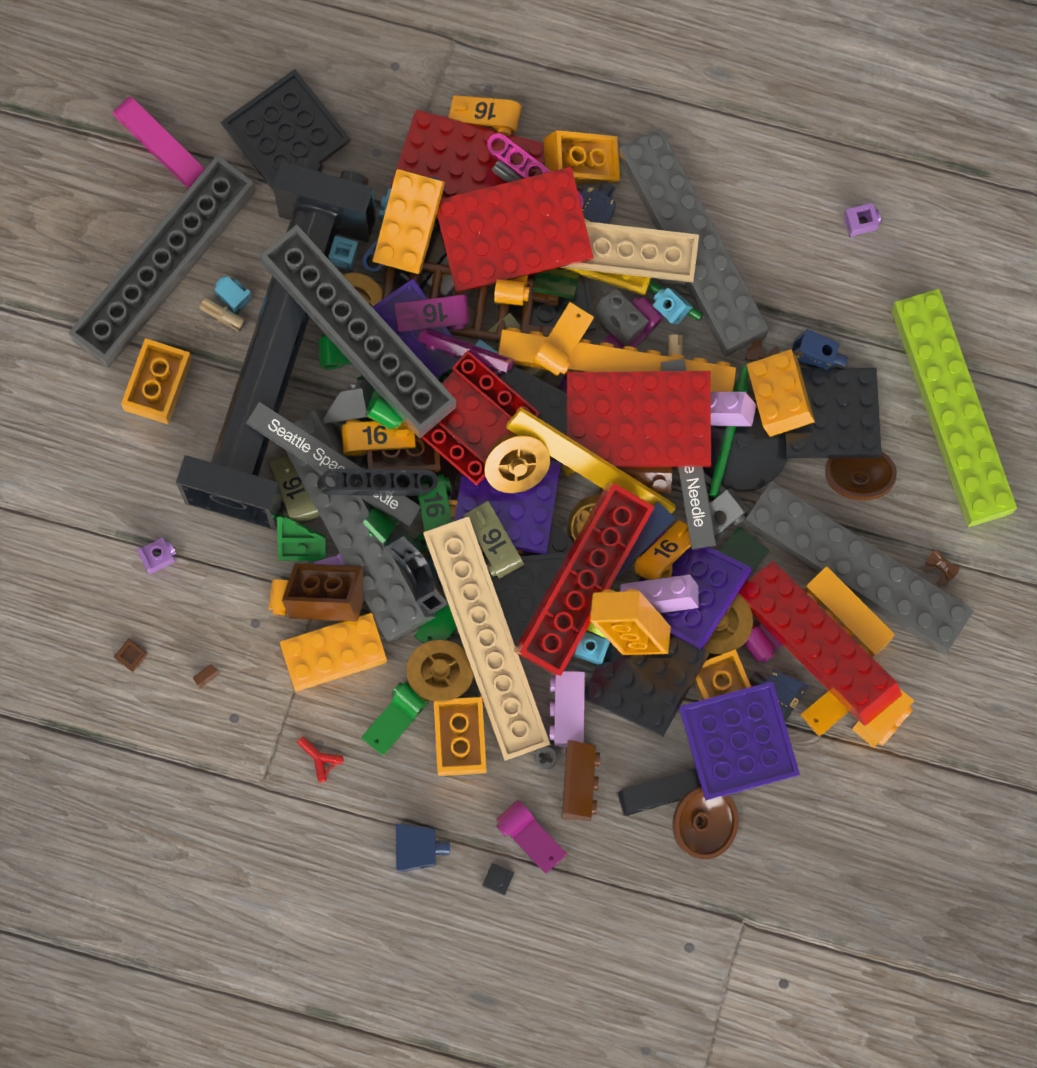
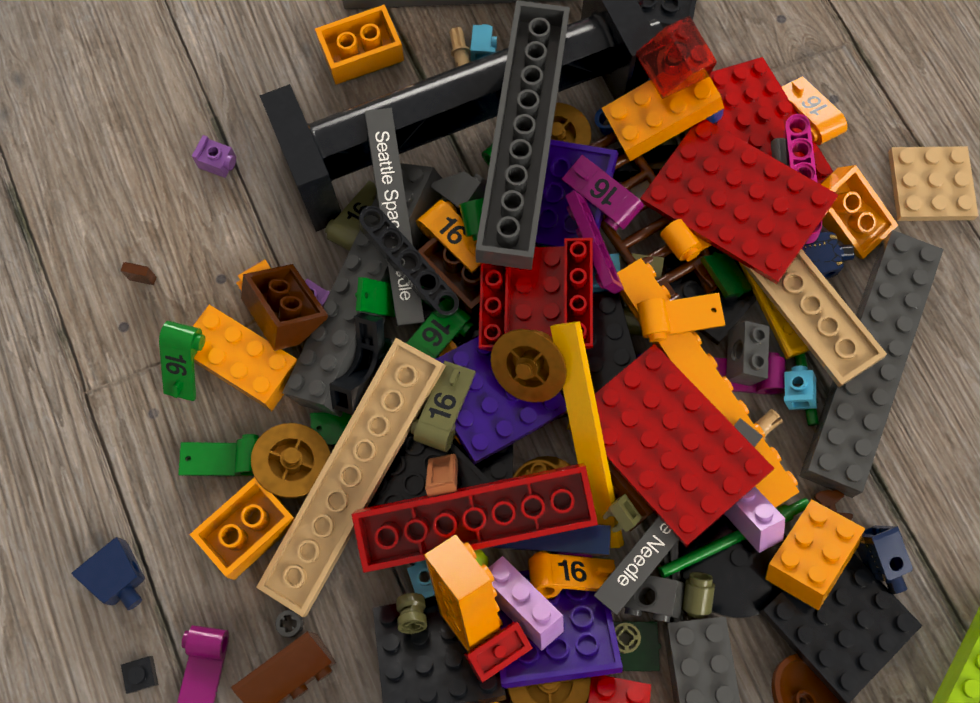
camera: 55 degrees right, 5 degrees down
(130, 655) = (115, 205): reddish brown tile -> none
(298, 541) = (316, 253): green wing -> none
(305, 690) = (177, 350): none -> green door
(320, 758) = (138, 423): red piece -> none
(343, 253) = (591, 93): medium azure brick -> none
(395, 189) = (676, 58): none -> clear red slope
(539, 577) = (441, 475): none -> nougat tile
(567, 708) = (349, 607): lavender brick -> none
(608, 85) = (932, 183): none -> tan plate
(609, 671) = (411, 613): none -> olive wheel
(658, 485) = (624, 513): none -> olive tile
(678, 632) = (498, 651): none -> red plate
(730, 549) = (623, 638): none -> olive wheel
(745, 485) = (698, 595): none -> olive brick

